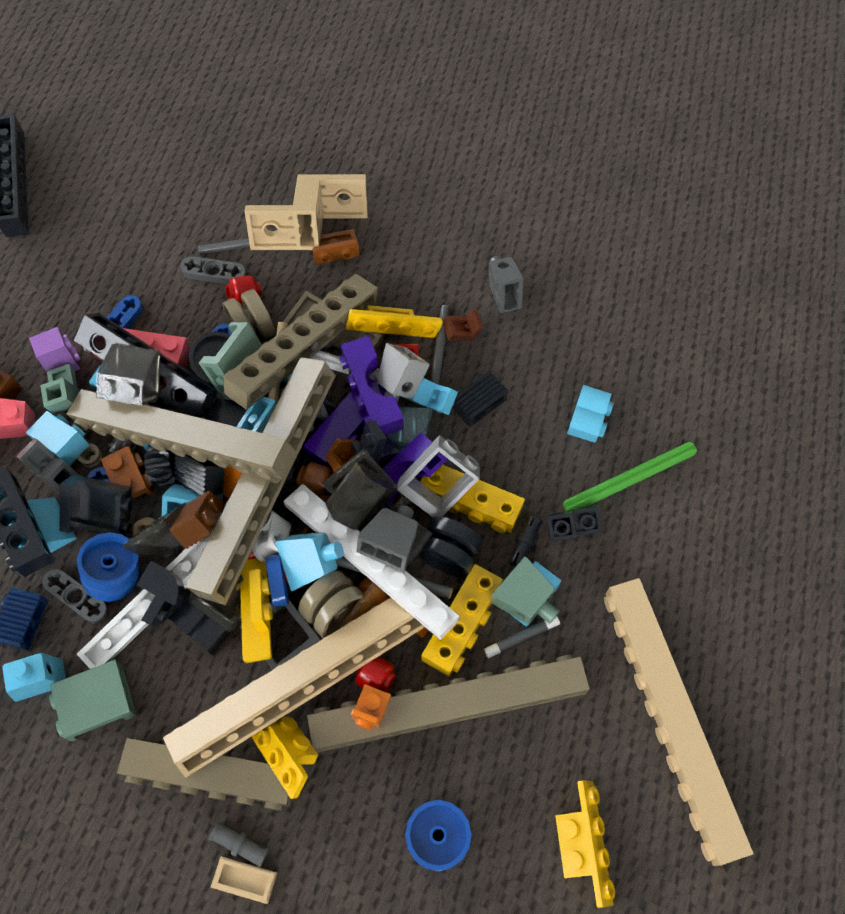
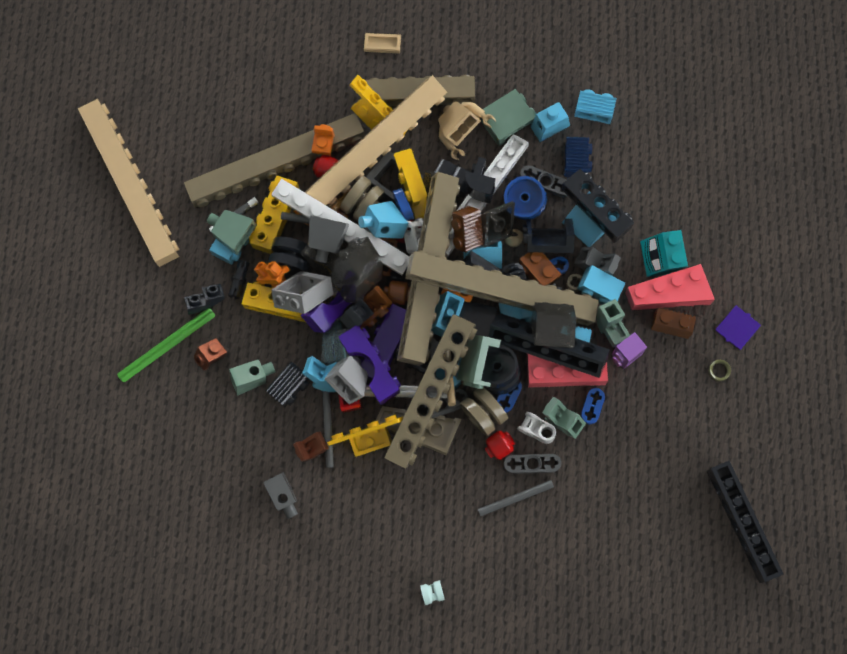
camera: 175 degrees right, 10 degrees up
(161, 303) = (563, 418): none -> sand green brick
(163, 700) = (458, 122): none -> tan torso
(197, 301) = (536, 427): none -> white piece
(239, 844) = (389, 58): dark grey pin -> none
(301, 223) = (461, 525): tan bracket -> none
(336, 247) = (434, 506): dark orange bracket -> none
(363, 168) = (429, 596): none -> light aqua wheel
(456, 839) = (269, 82): blue wheel -> none
(478, 519) = (271, 273): none -> orange hips
(525, 411) = (244, 380): none -> sand green torso
(574, 454) = (209, 353): none -> copper bracket
(583, 844) = (181, 99): yellow bracket -> none
(589, 414) = (200, 388): medium azure brick -> none

